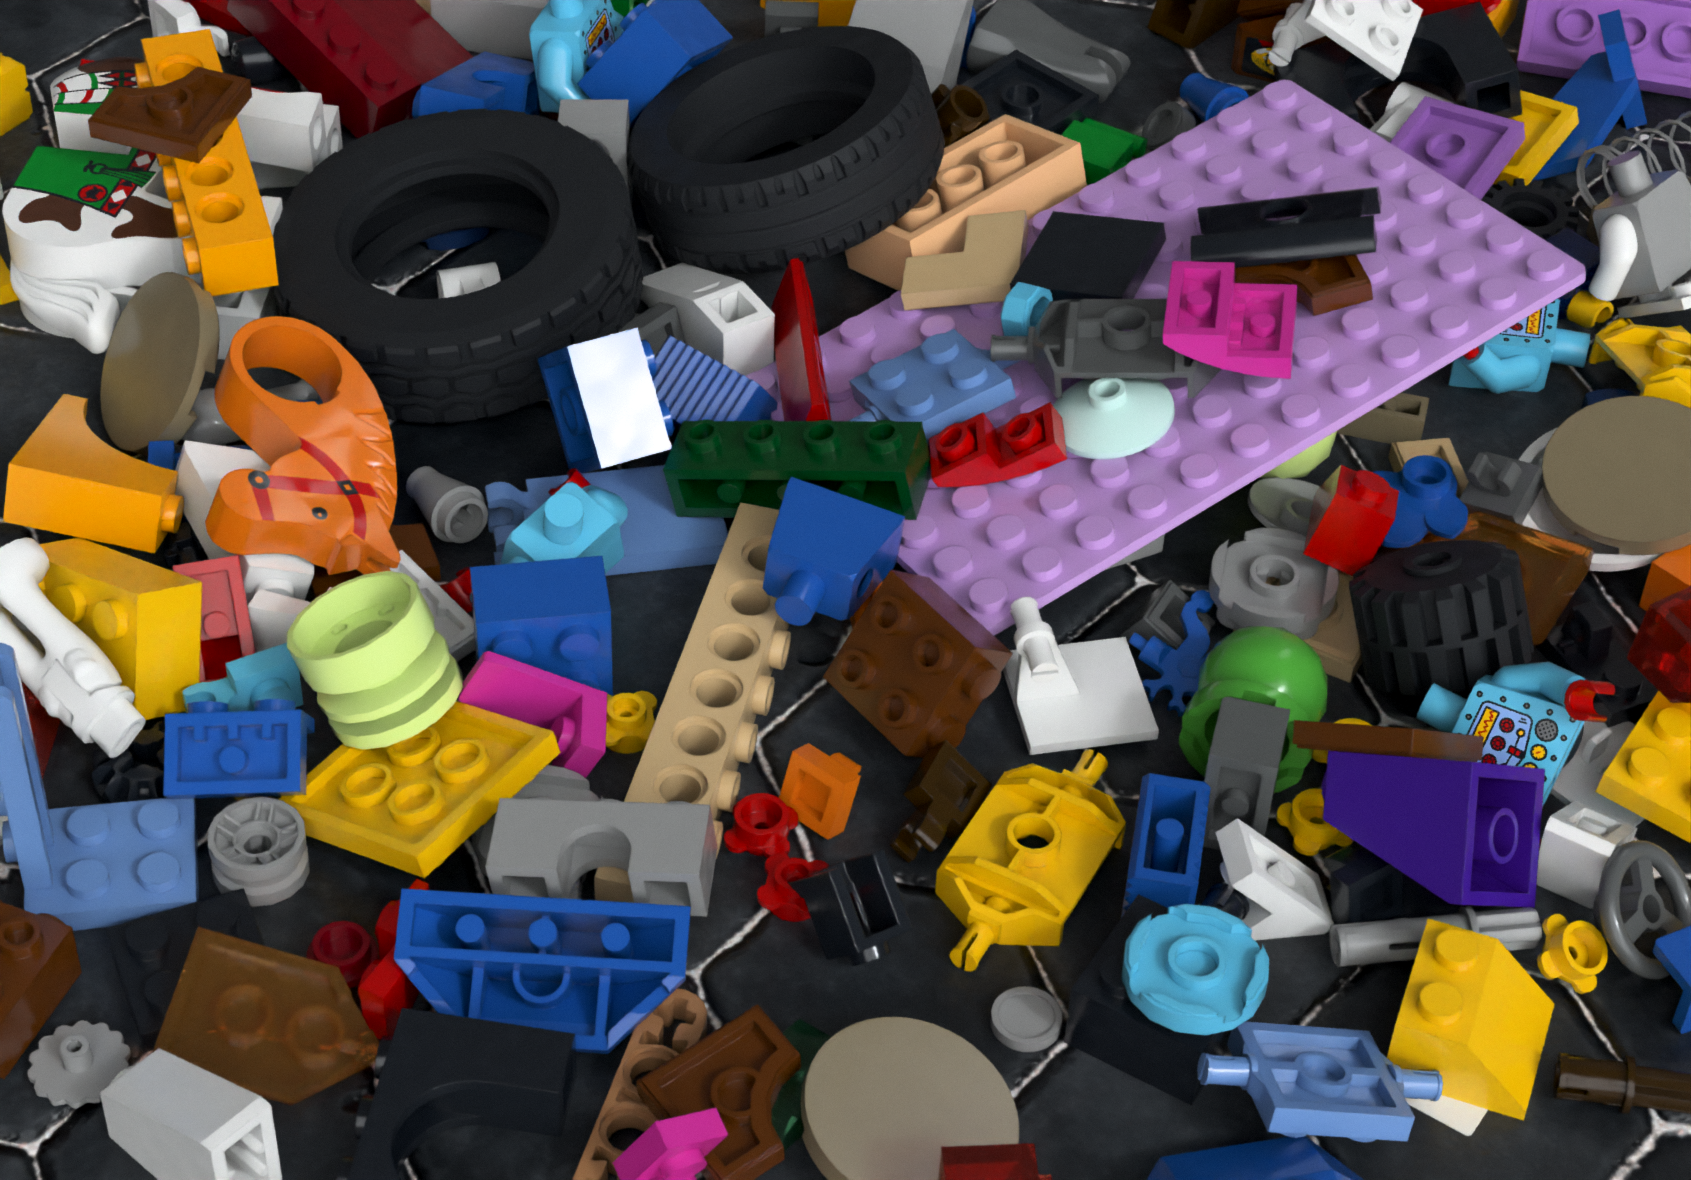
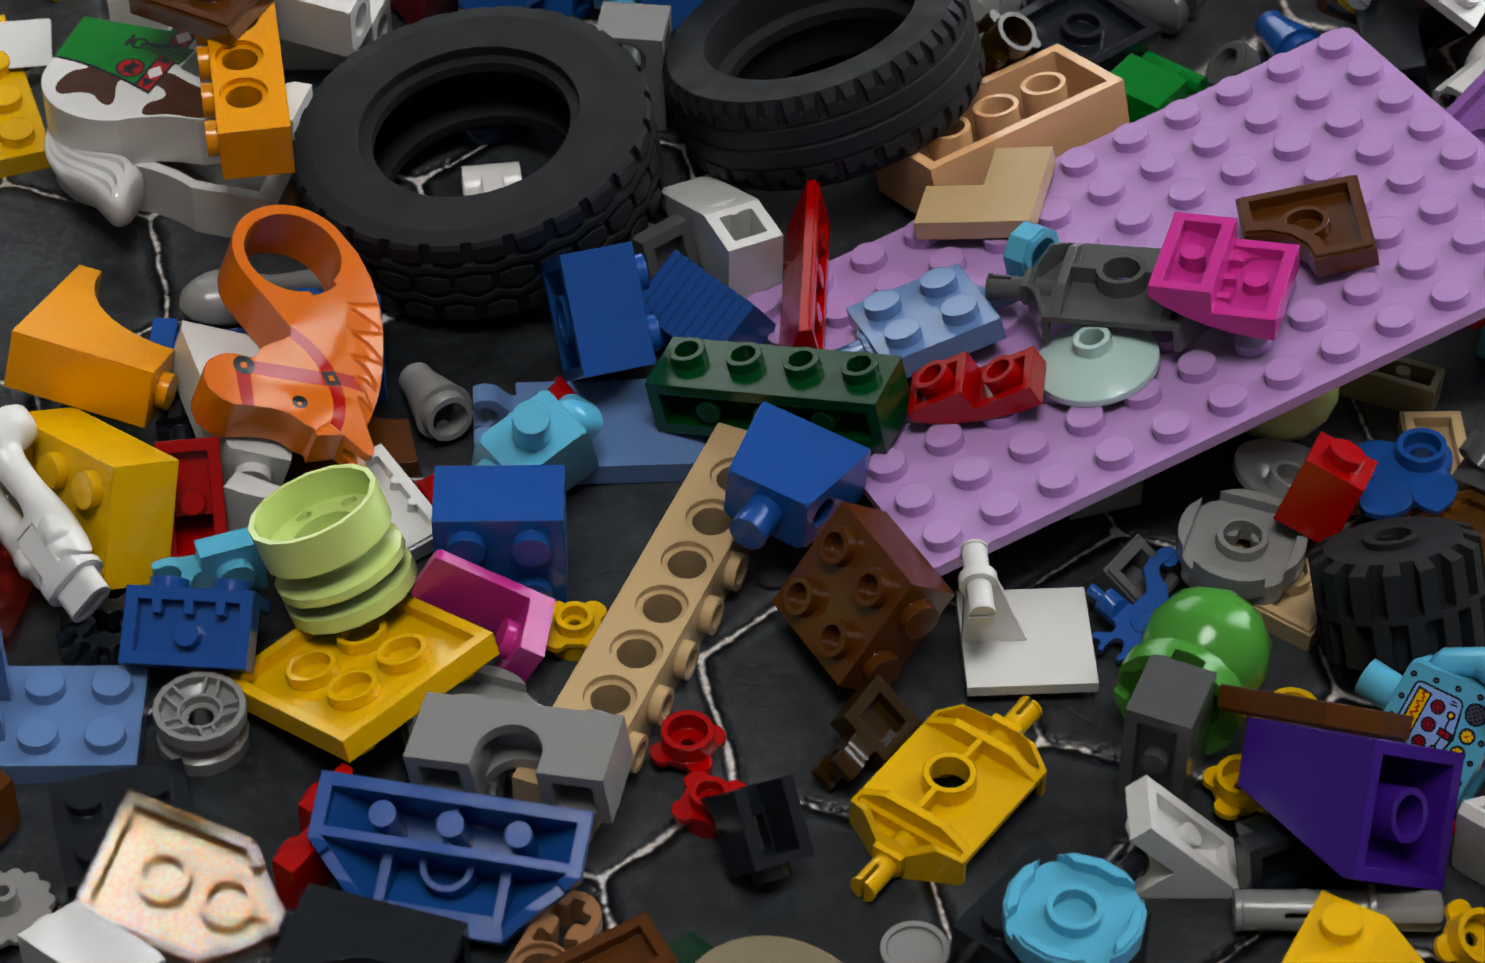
camera: 10 degrees right, 0 degrees up
(158, 362) = (171, 239): dark tan tile -> none
(345, 947) = (268, 822): dark red plate -> none
(820, 789) = (750, 711): orange tile -> none
(1091, 256) = (1107, 200): black tile -> none
(1167, 841) = (1079, 792): blue brick -> none
(1326, 227) = (1345, 186): black piece -> none

